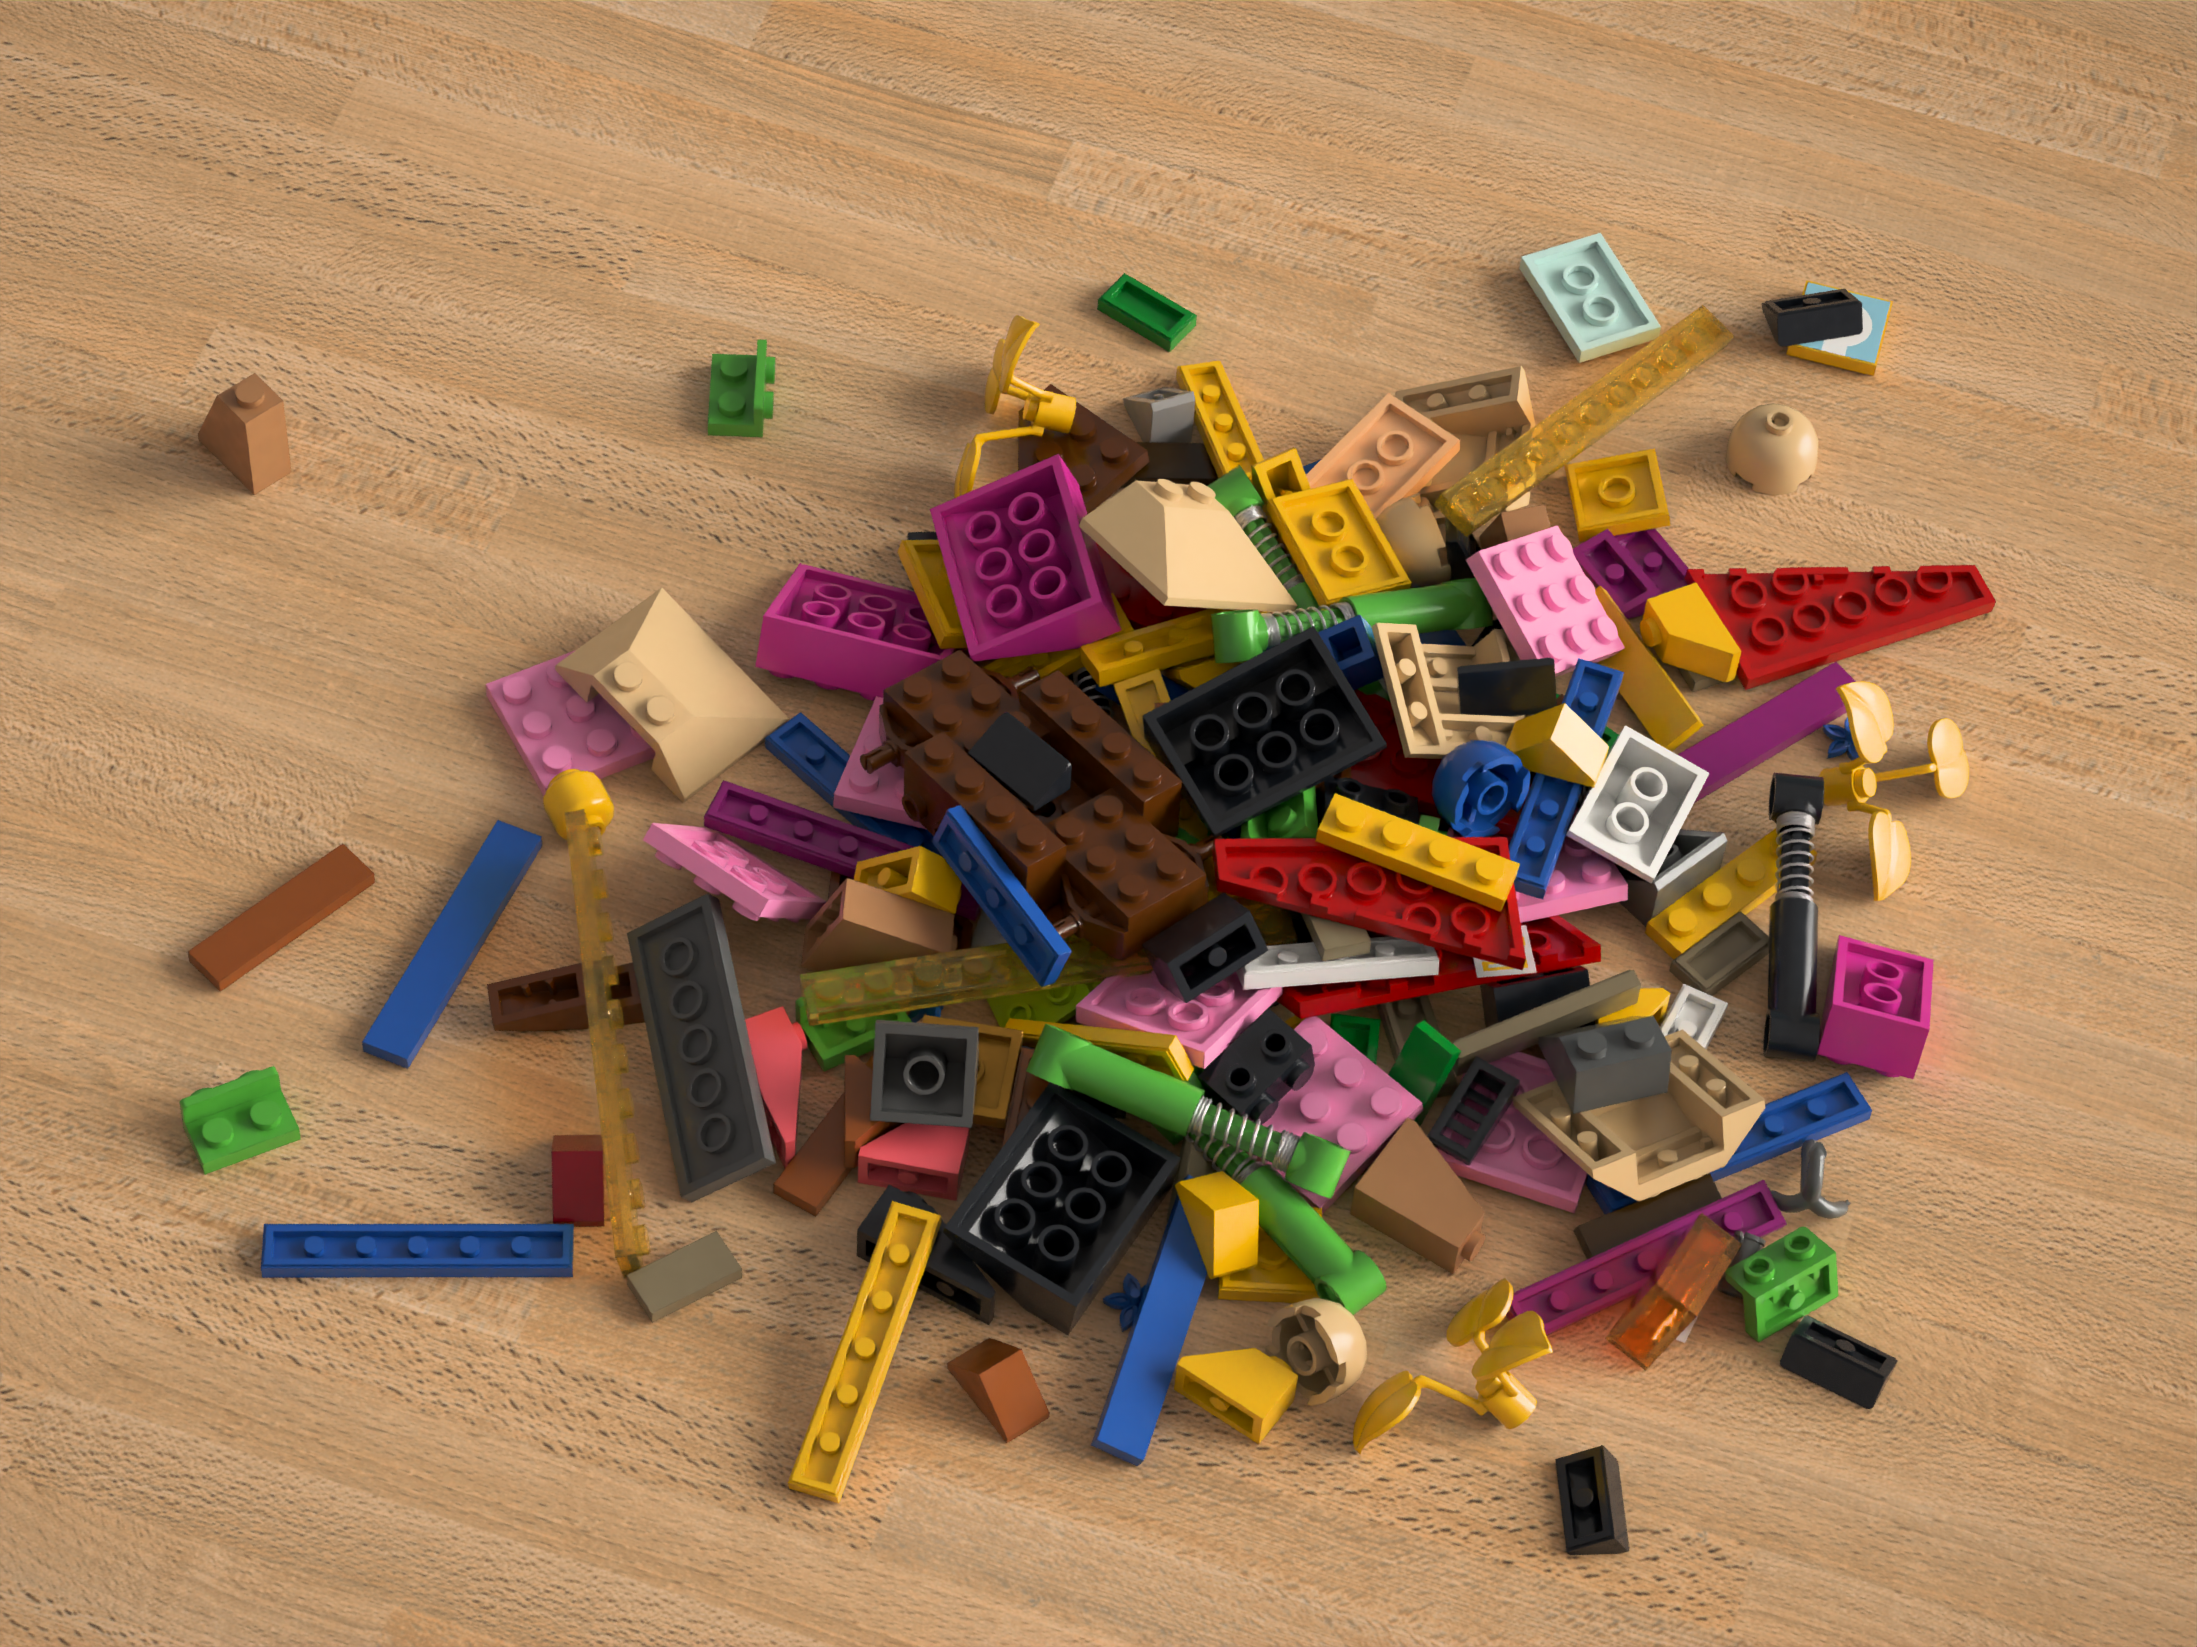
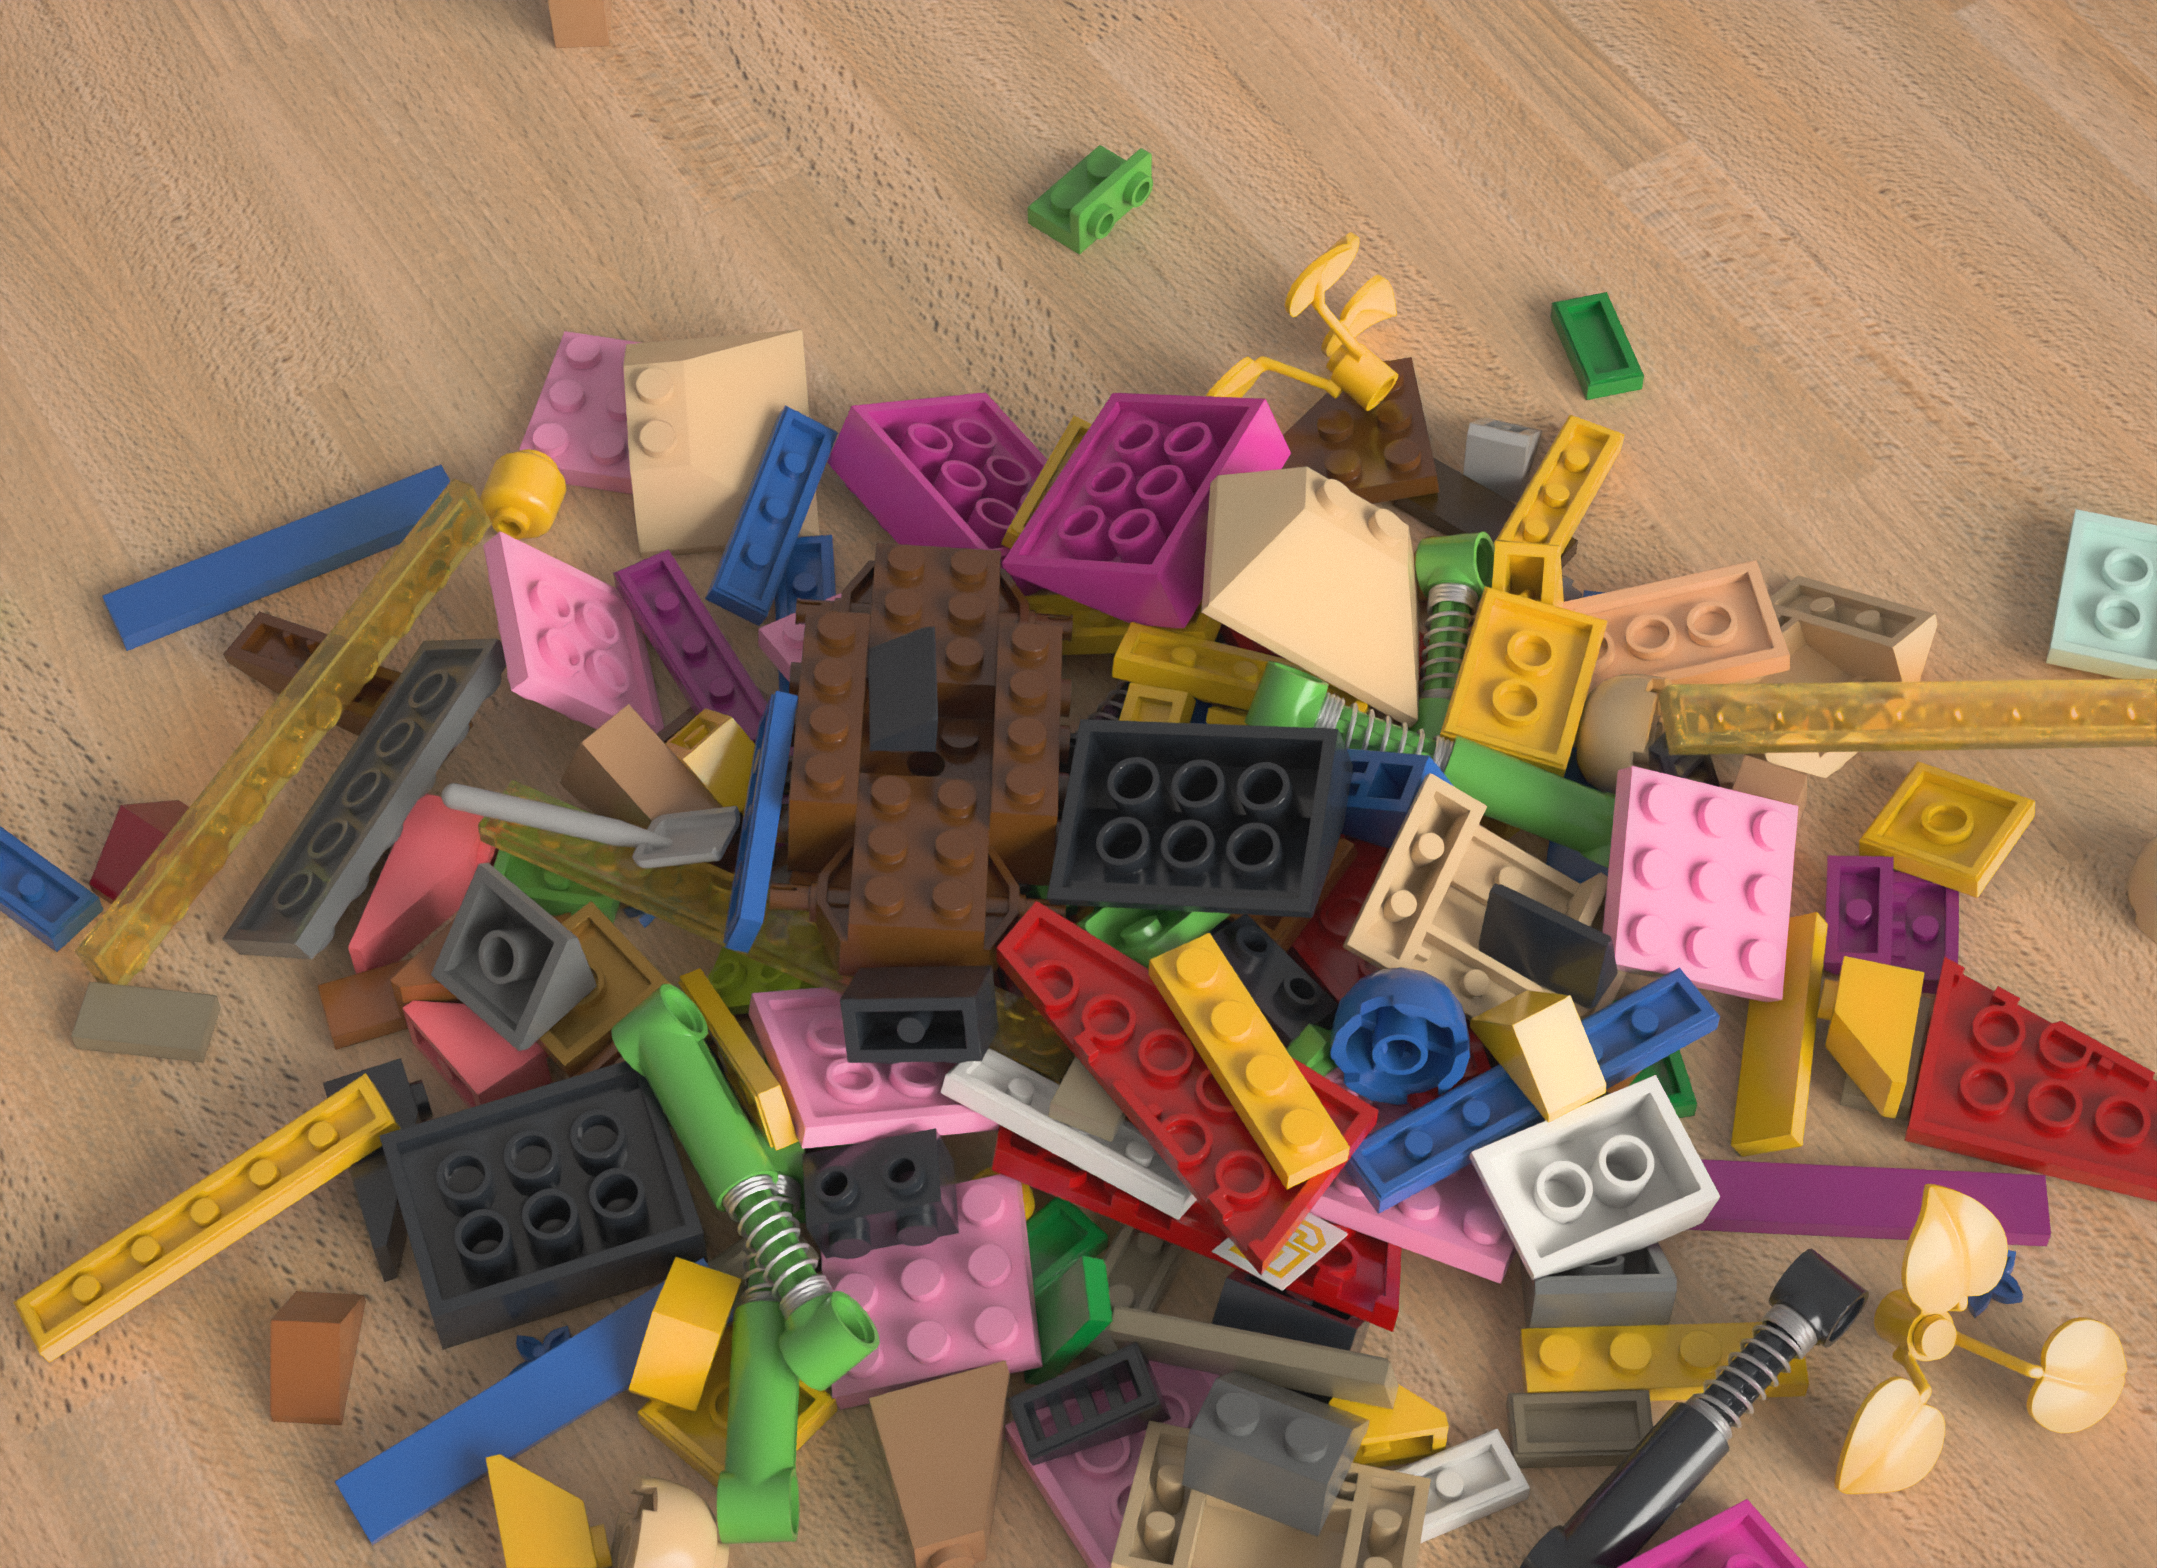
camera: 45 degrees right, 0 degrees up
(281, 917) = (165, 437): dark orange tile -> none
(762, 719) = (771, 516): none -> blue tile
(945, 944) = (667, 841): none -> light grey piece

